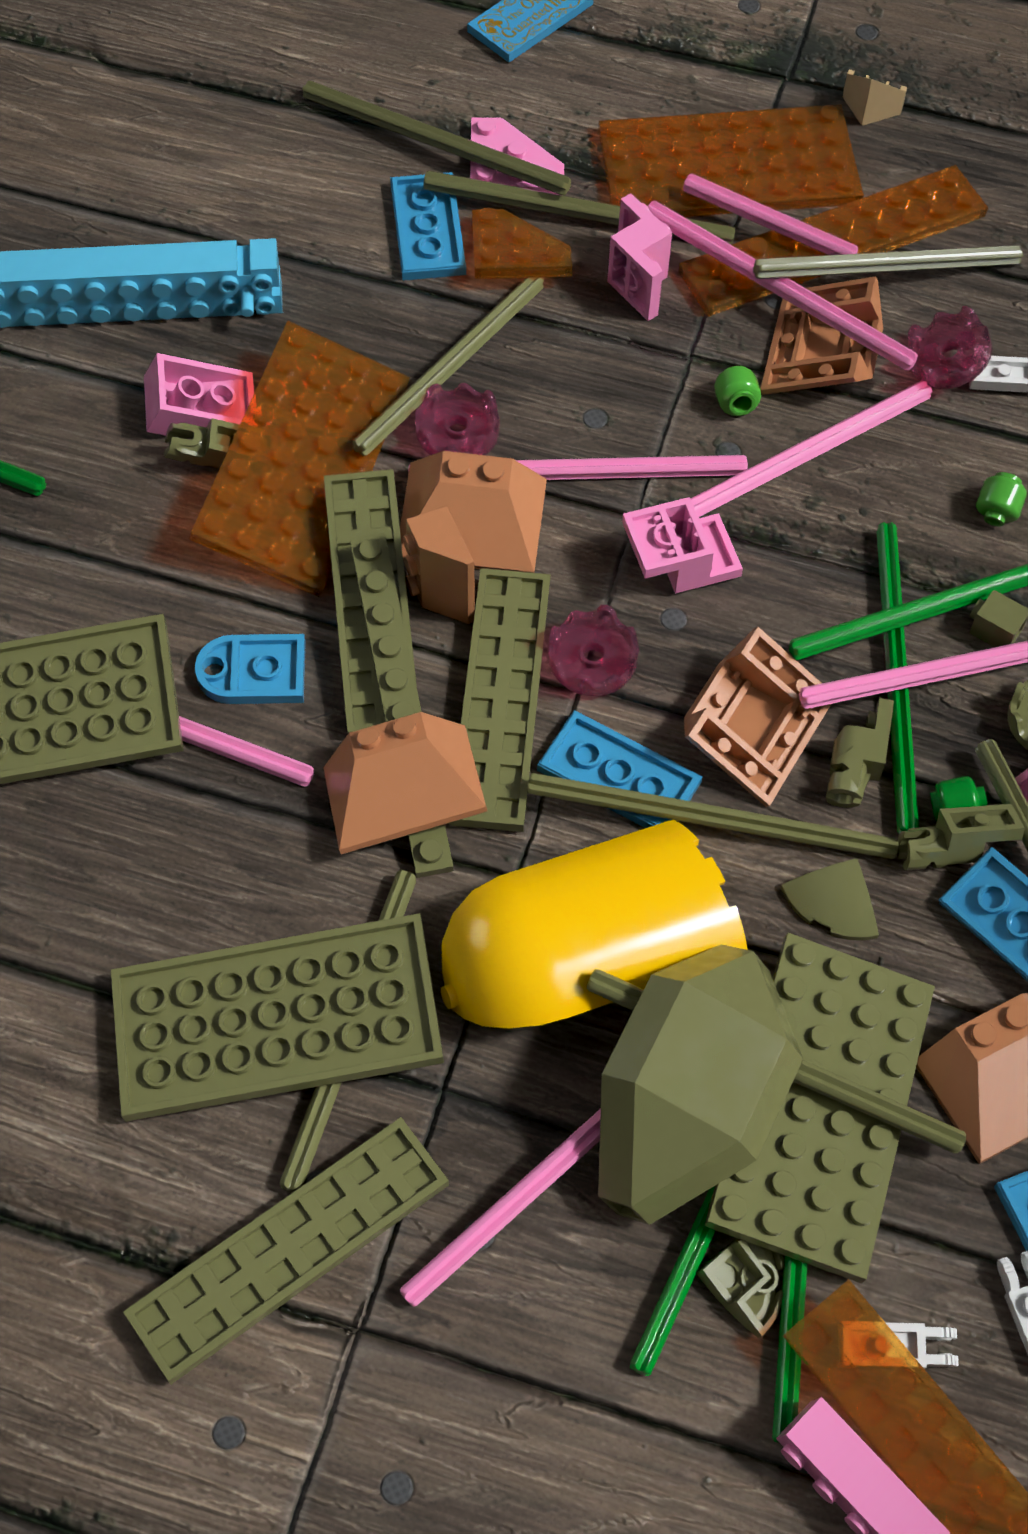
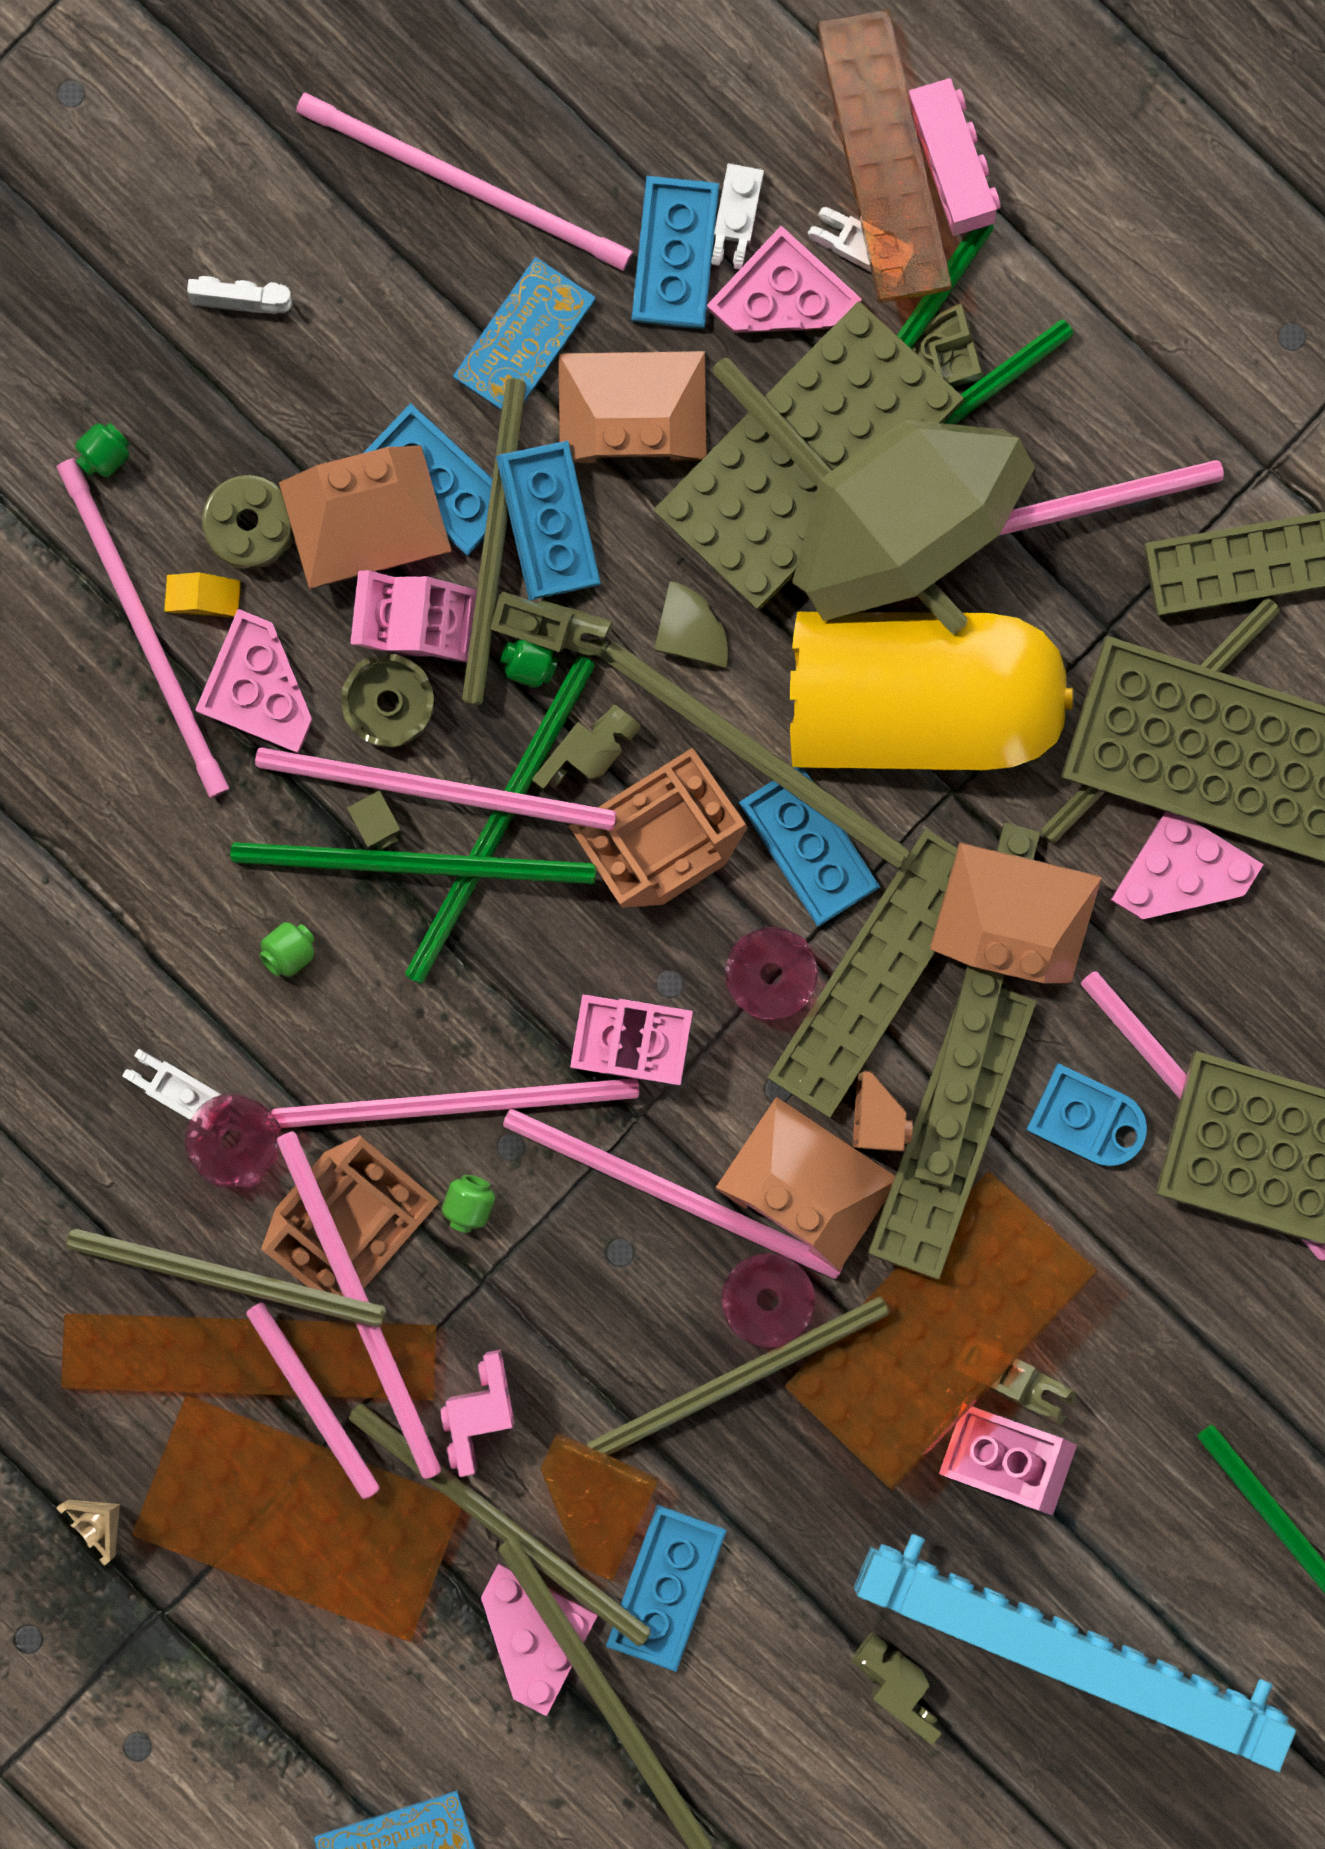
camera: 155 degrees left, 25 degrees up
(207, 220) = (898, 1687): none -> olive plate
(261, 903) = (1183, 870): none -> bright pink plate
(944, 1257) = (782, 291): none -> bright pink plate

